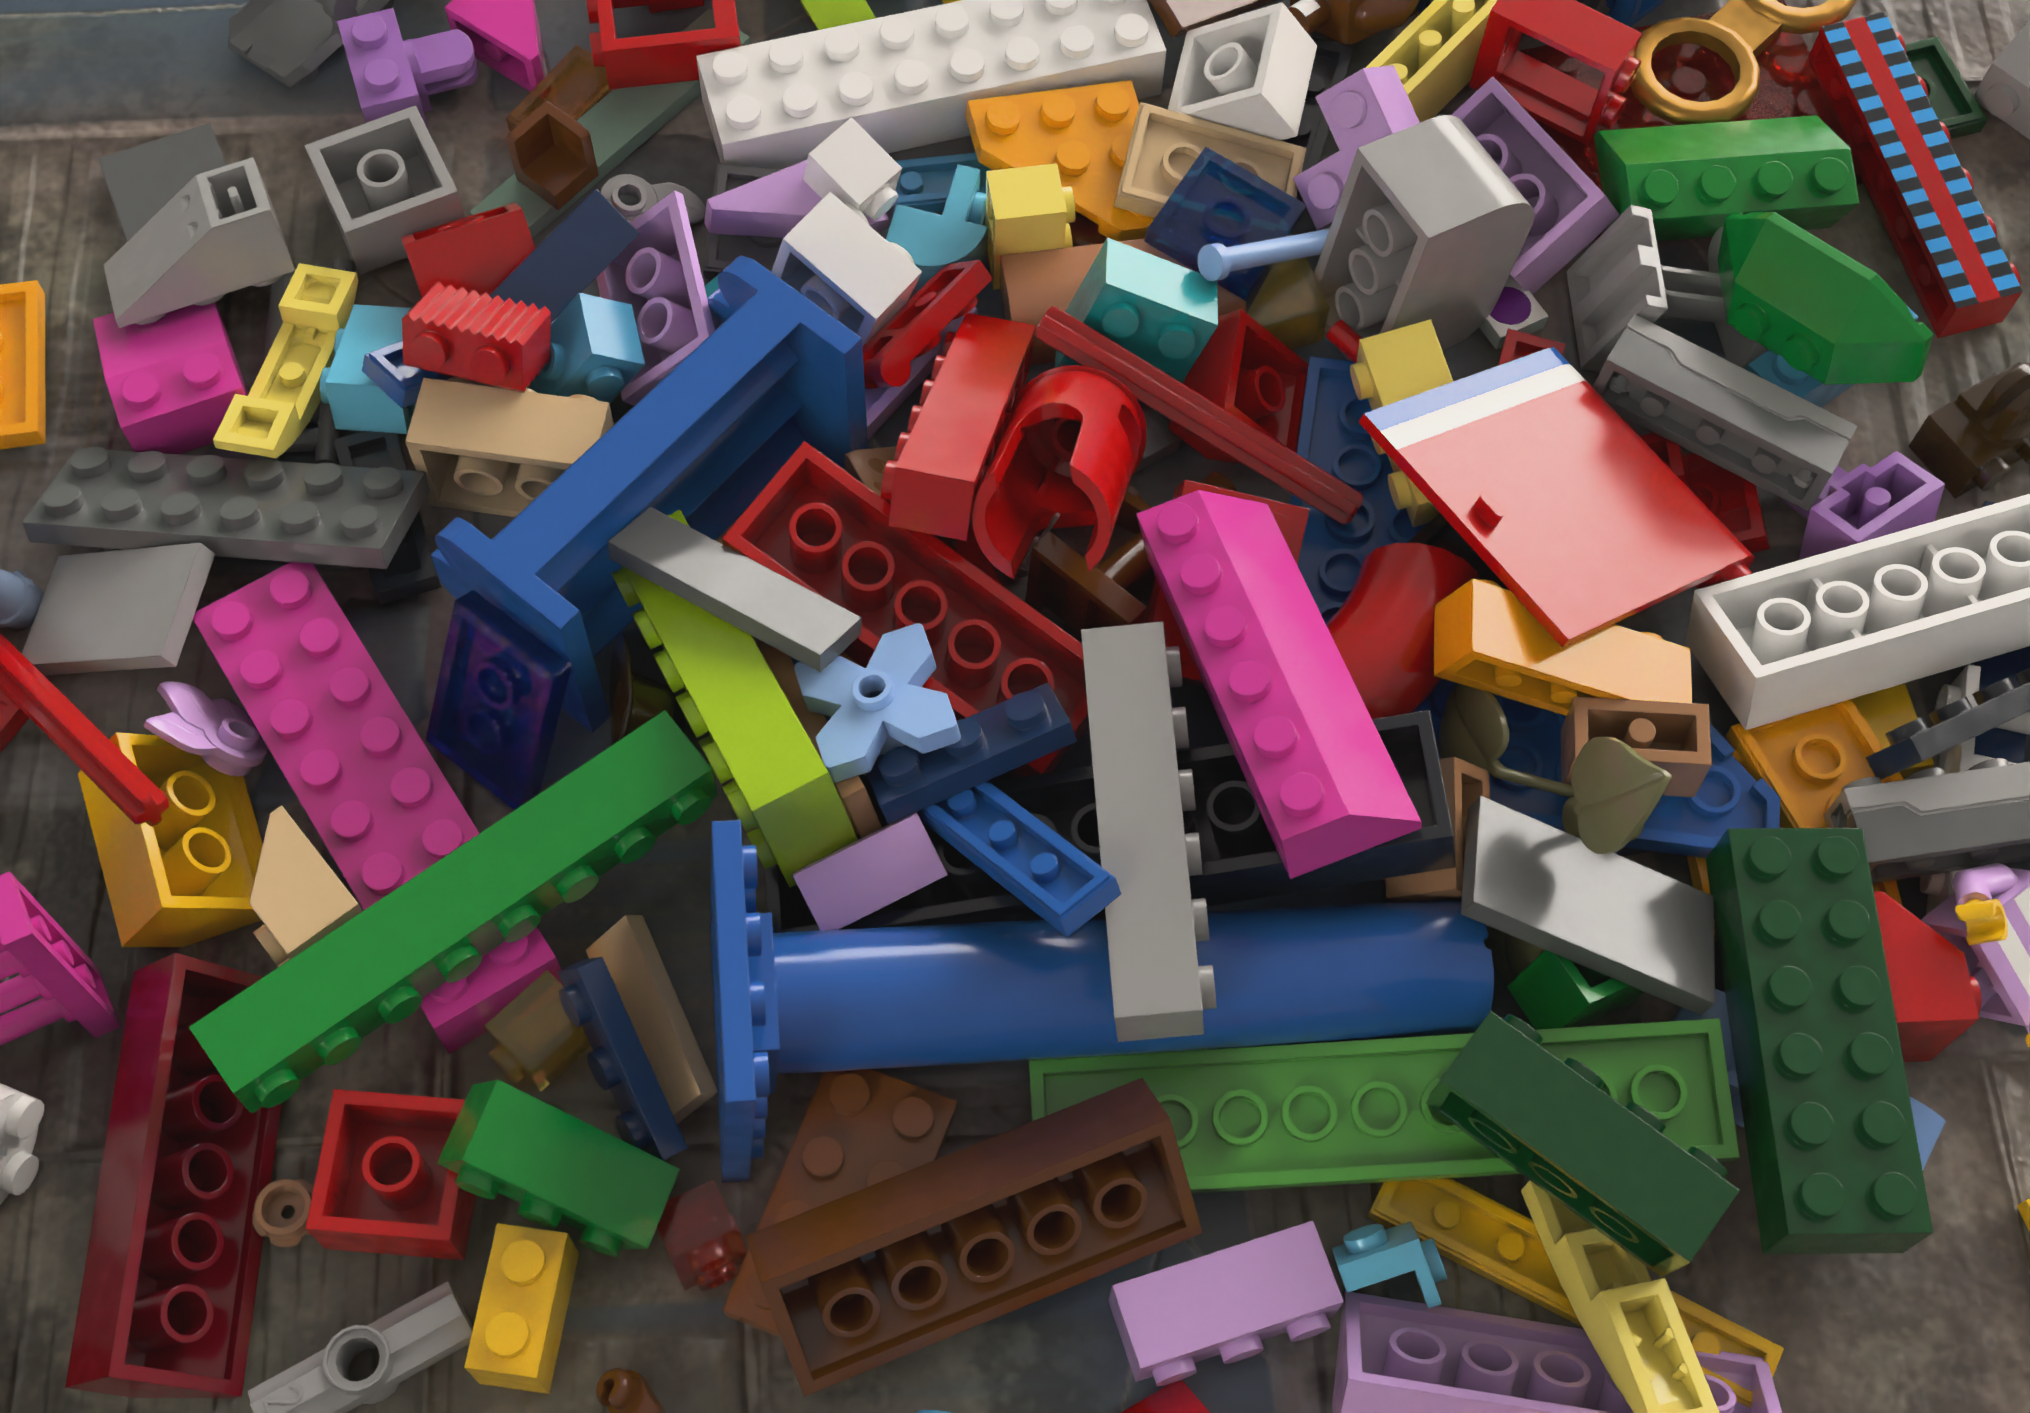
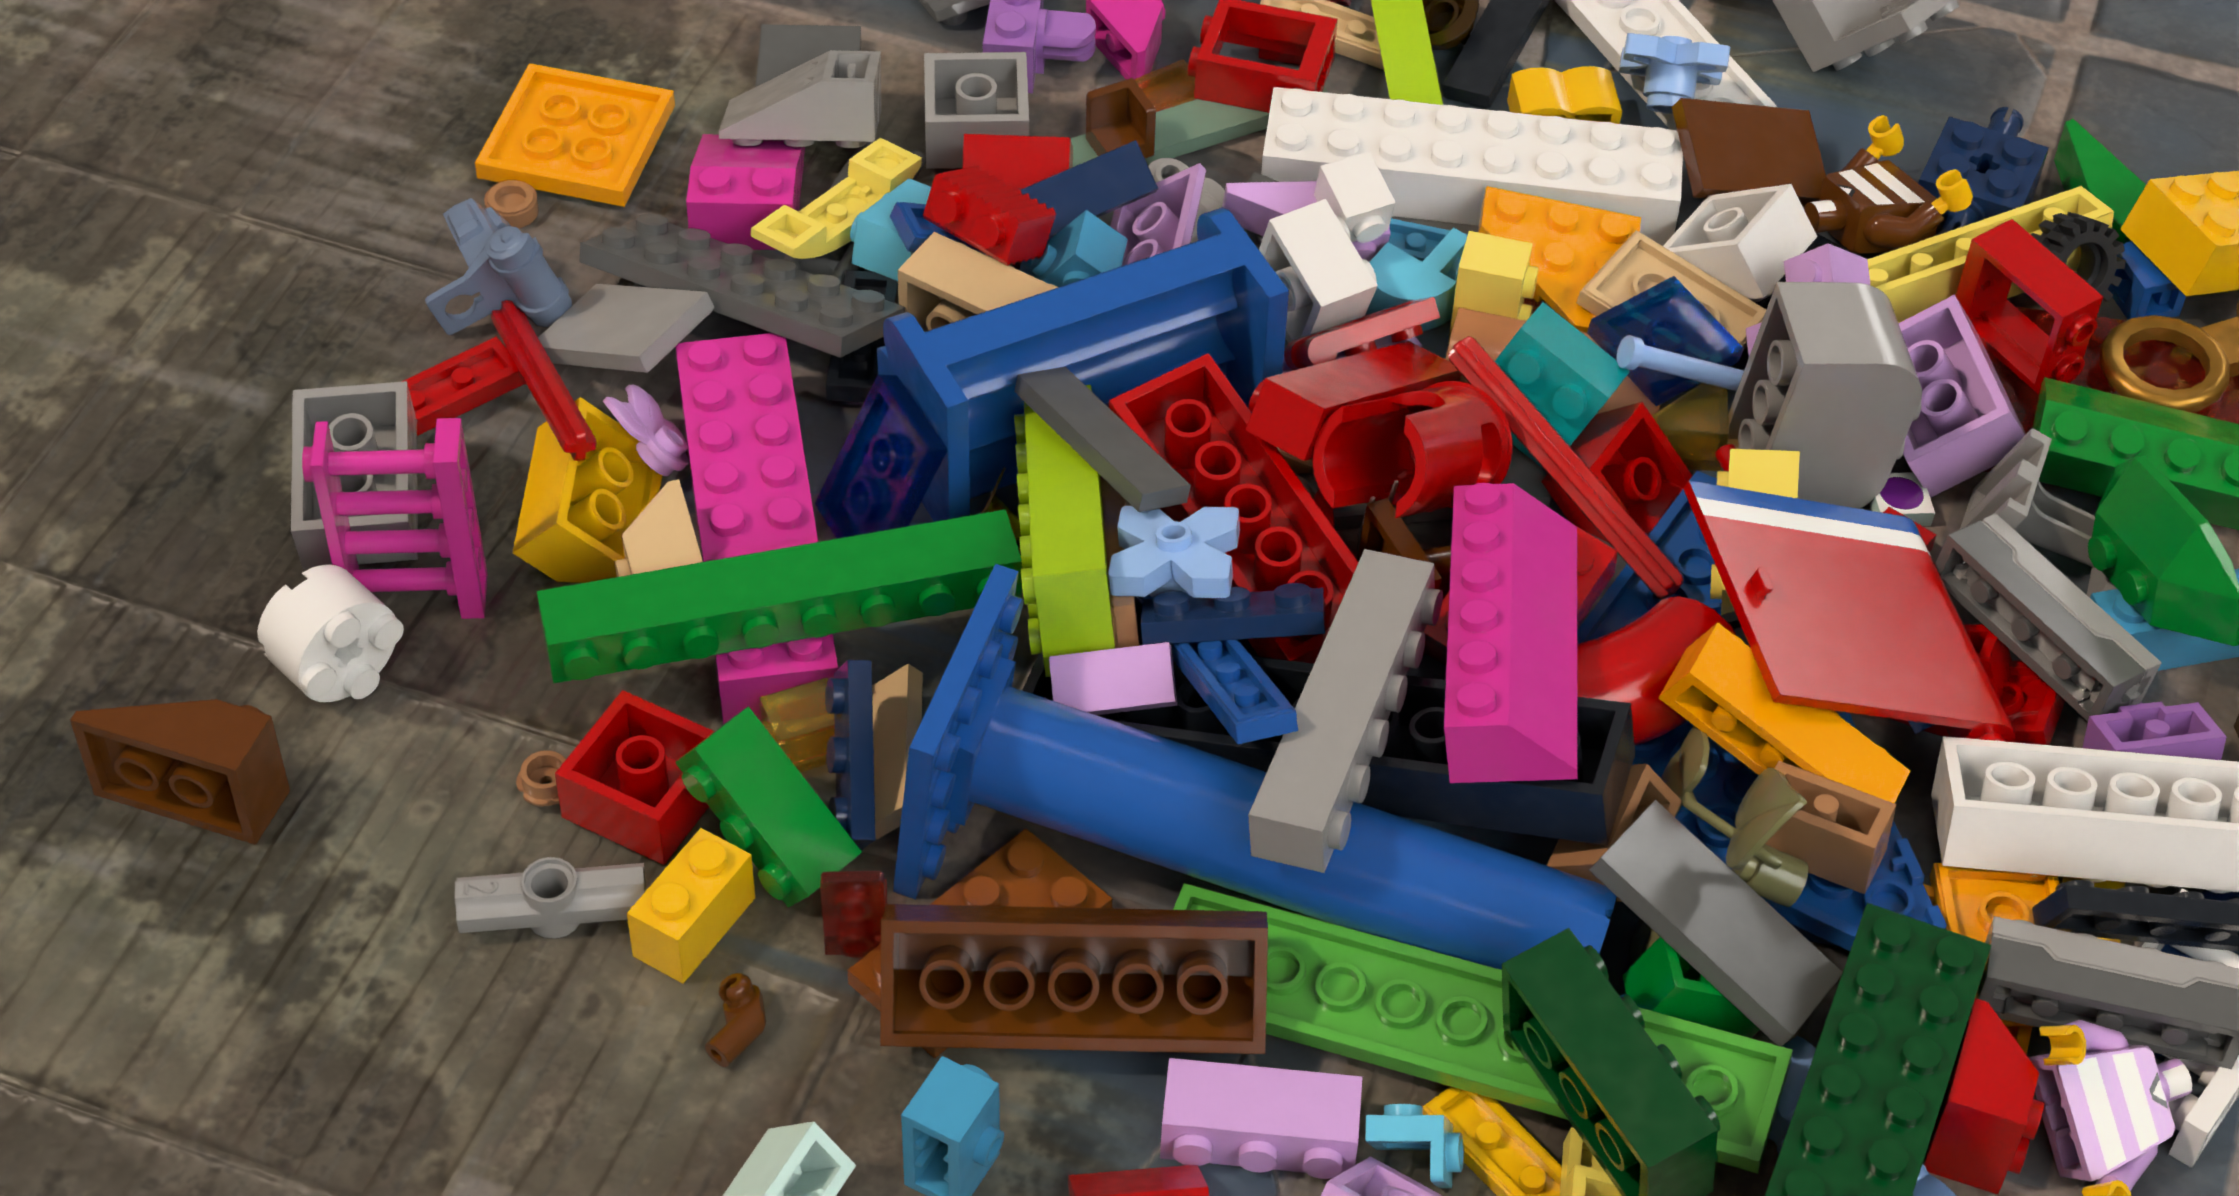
camera: 25 degrees right, 15 degrees down
(174, 1204) = (461, 746): dark red slope -> none

